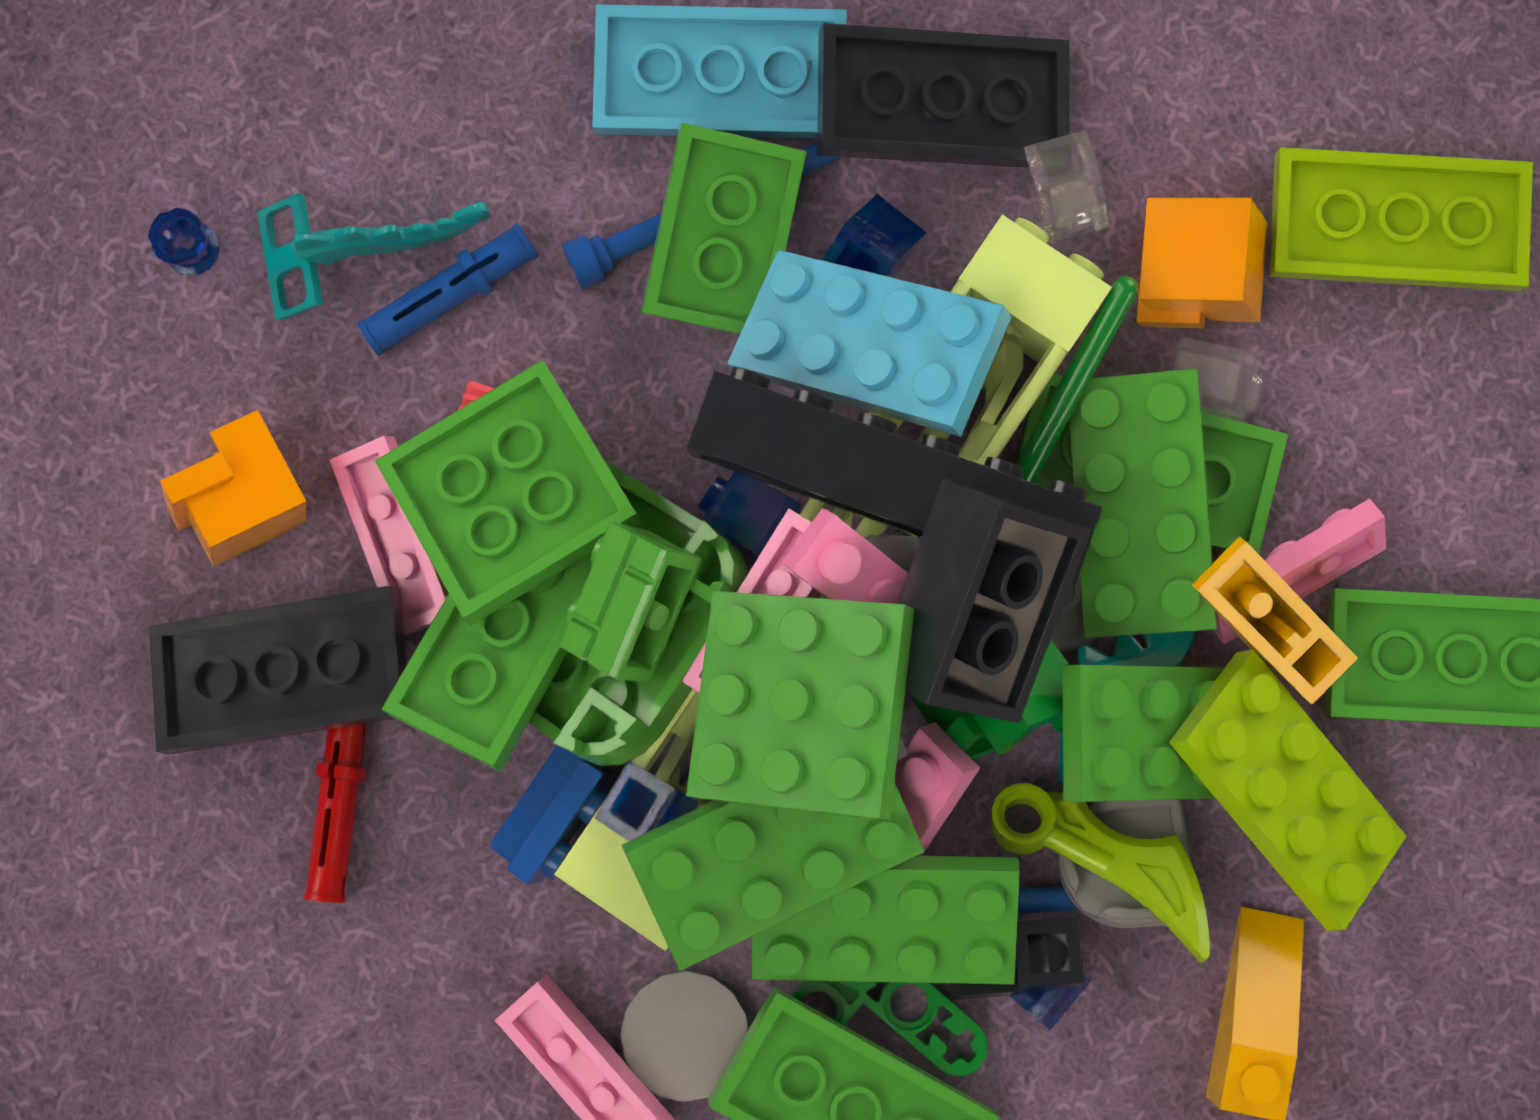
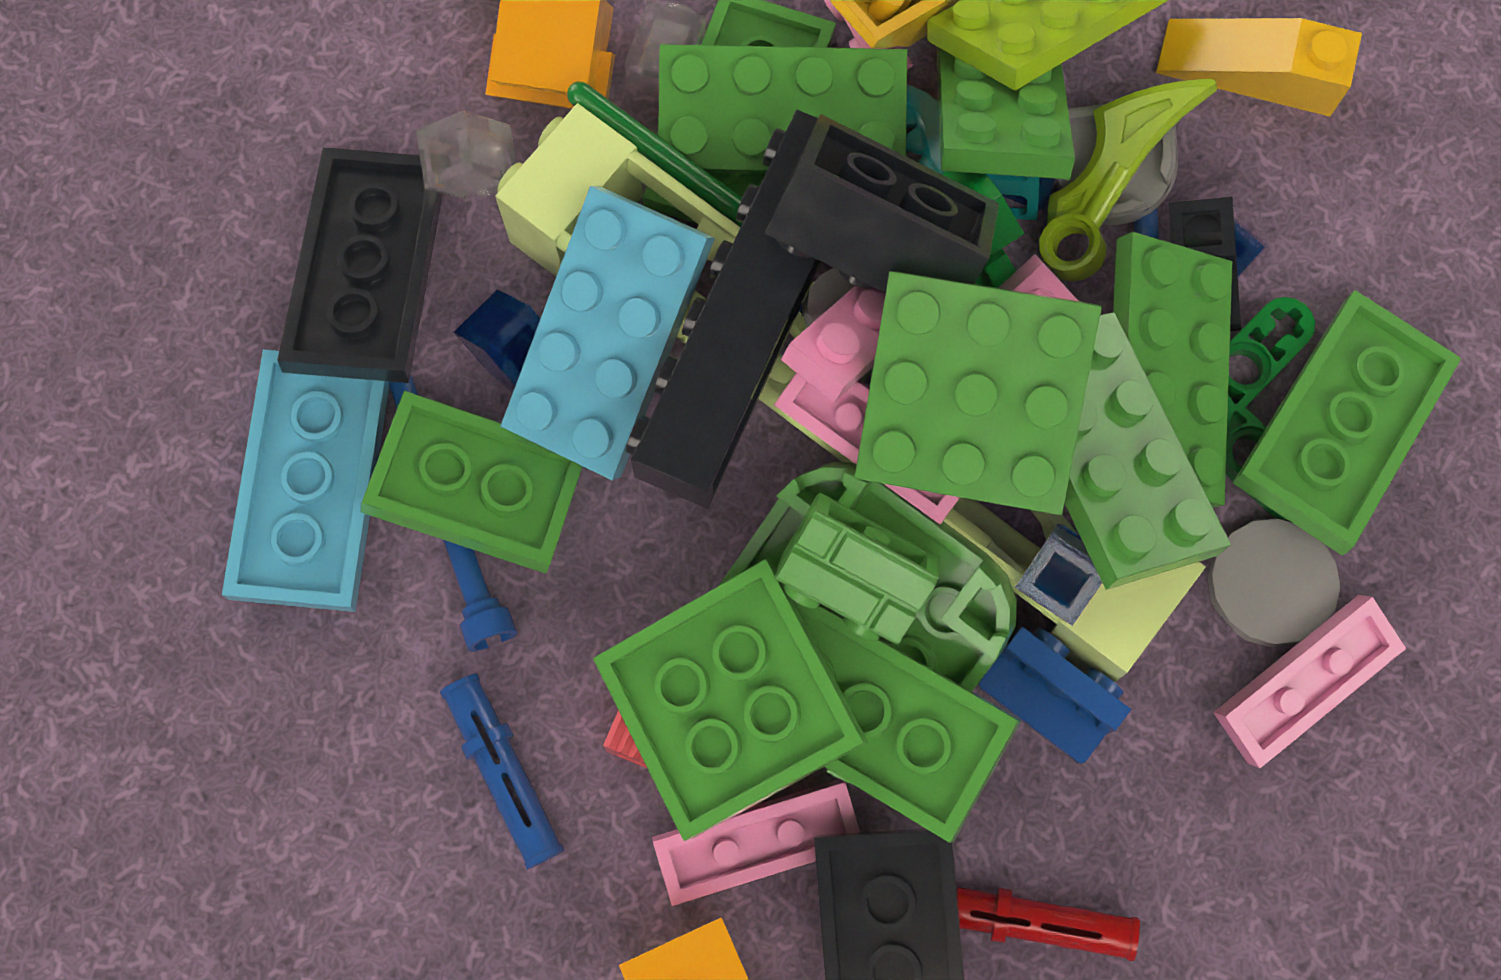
camera: 90 degrees left, 10 degrees down
(335, 244) = (444, 893): teal piece -> none
(746, 511) = (763, 466): clear blue slope -> none

